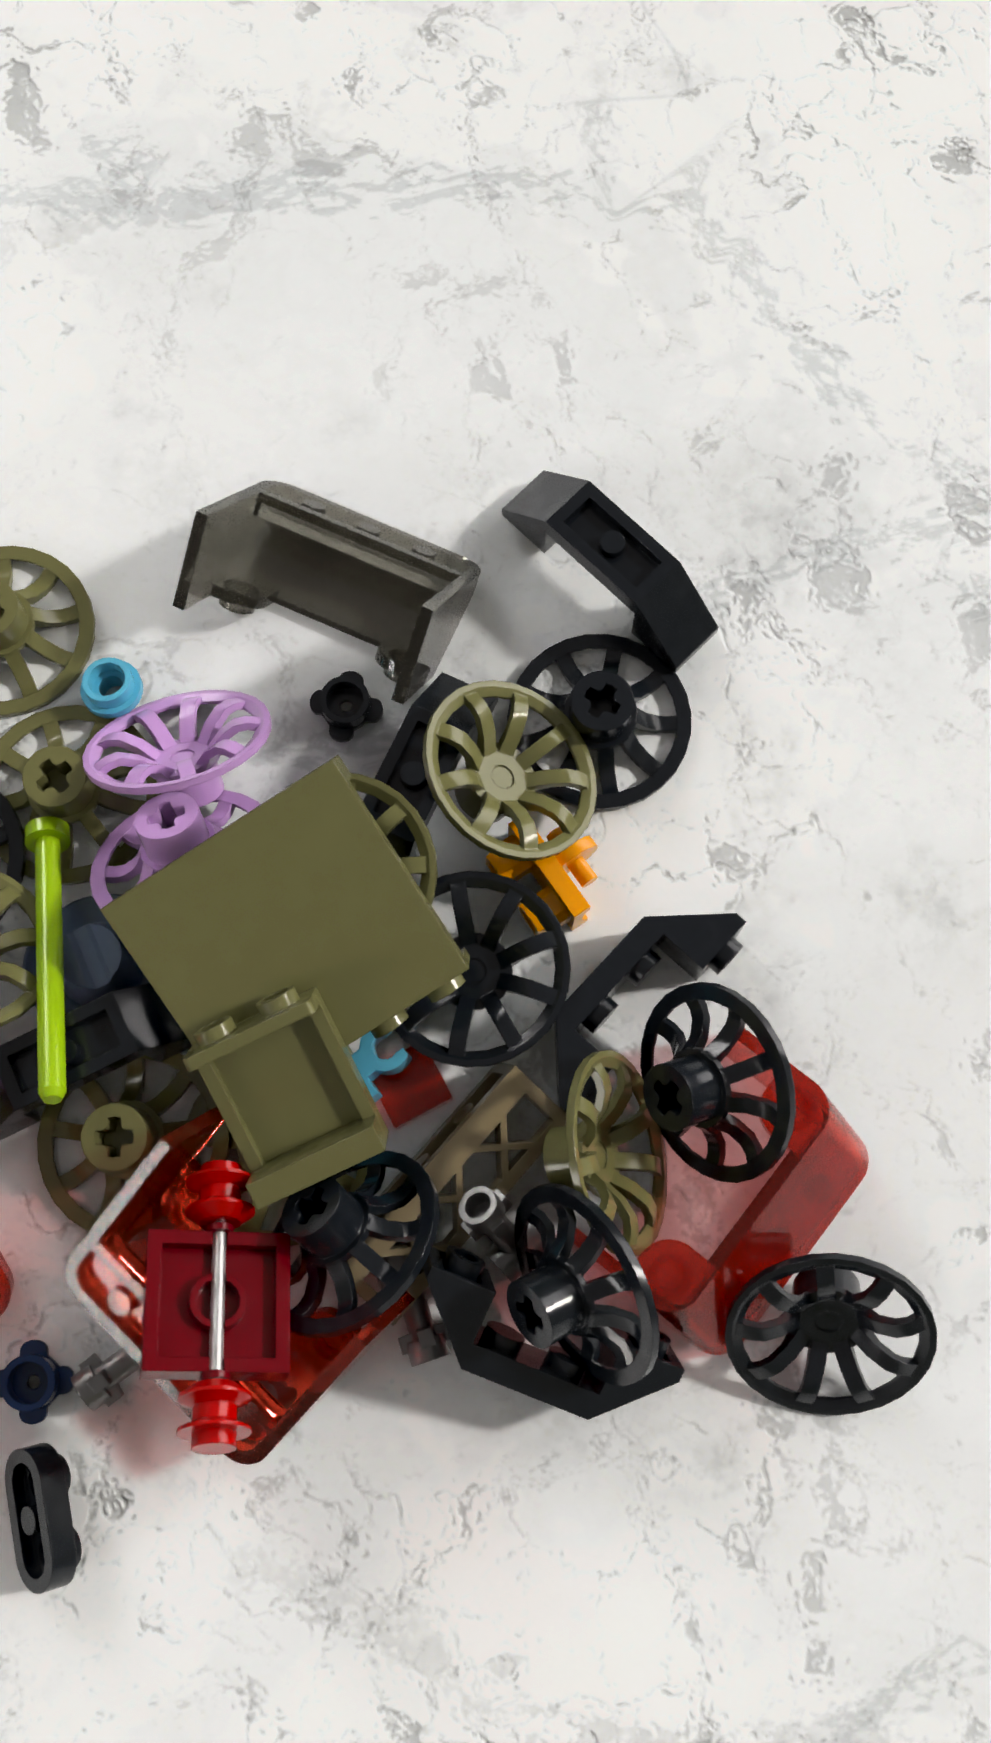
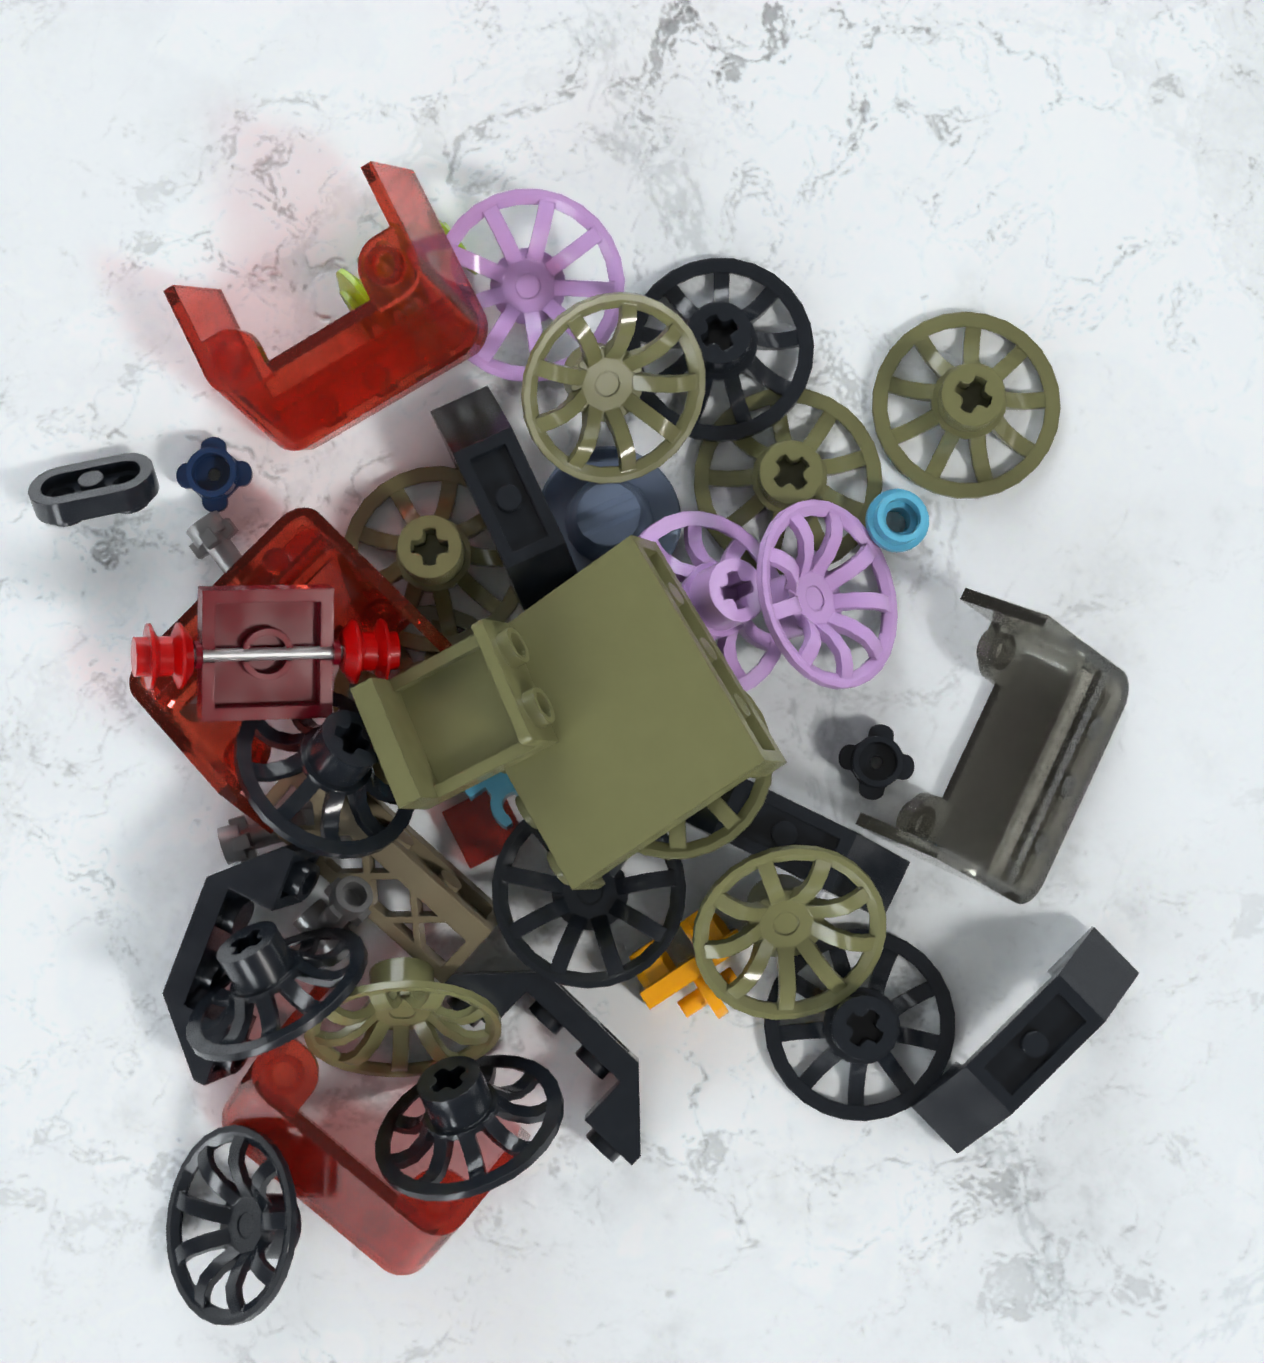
camera: 90 degrees right, 10 degrees up
(48, 839) = (732, 465): lime bar -> none

